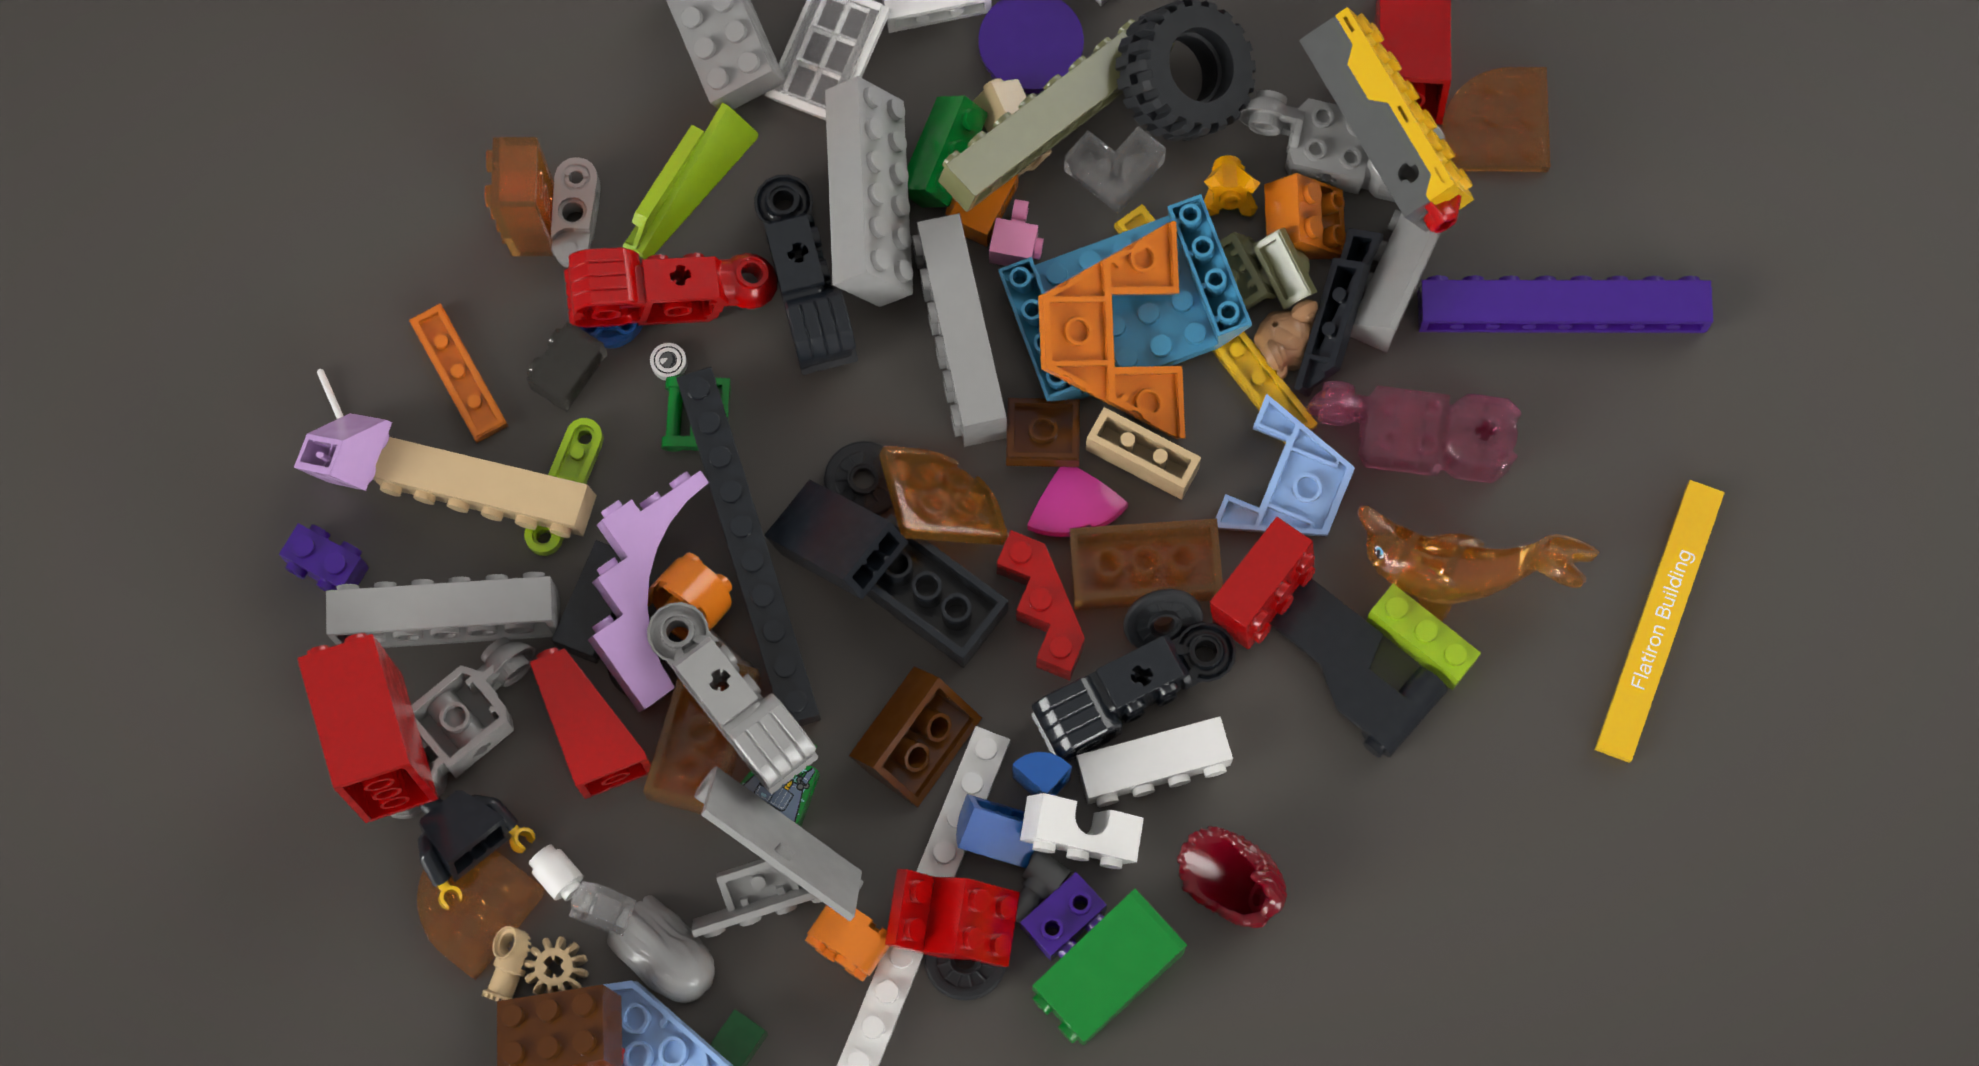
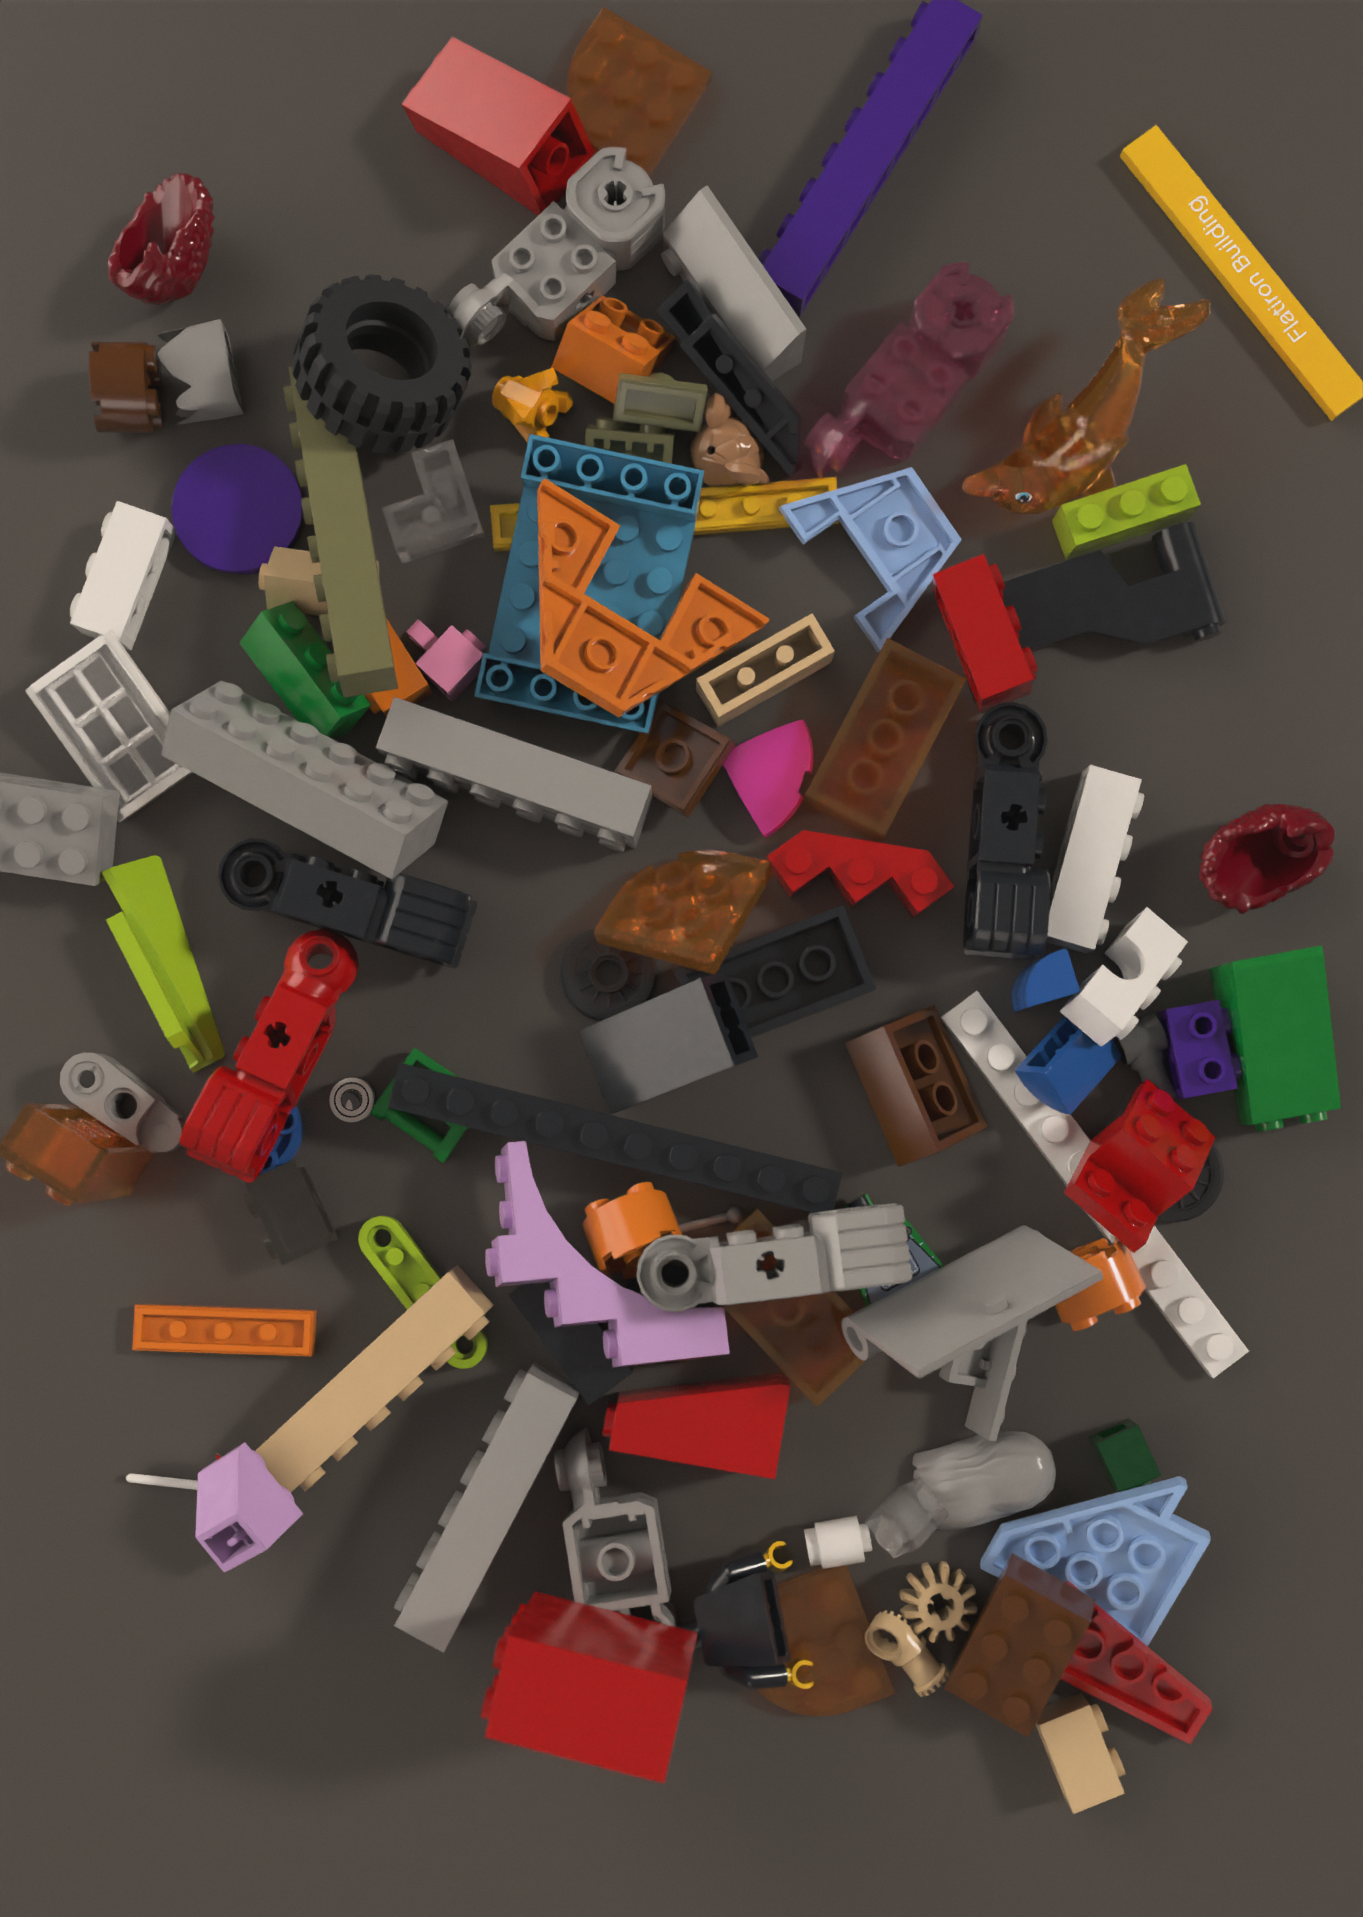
camera: 60 degrees left, 10 degrees up
(314, 555) = (359, 1591): dark purple brick -> none
(1143, 613) = (952, 760): black wheel -> none
(1389, 120) = (584, 182): piece -> none

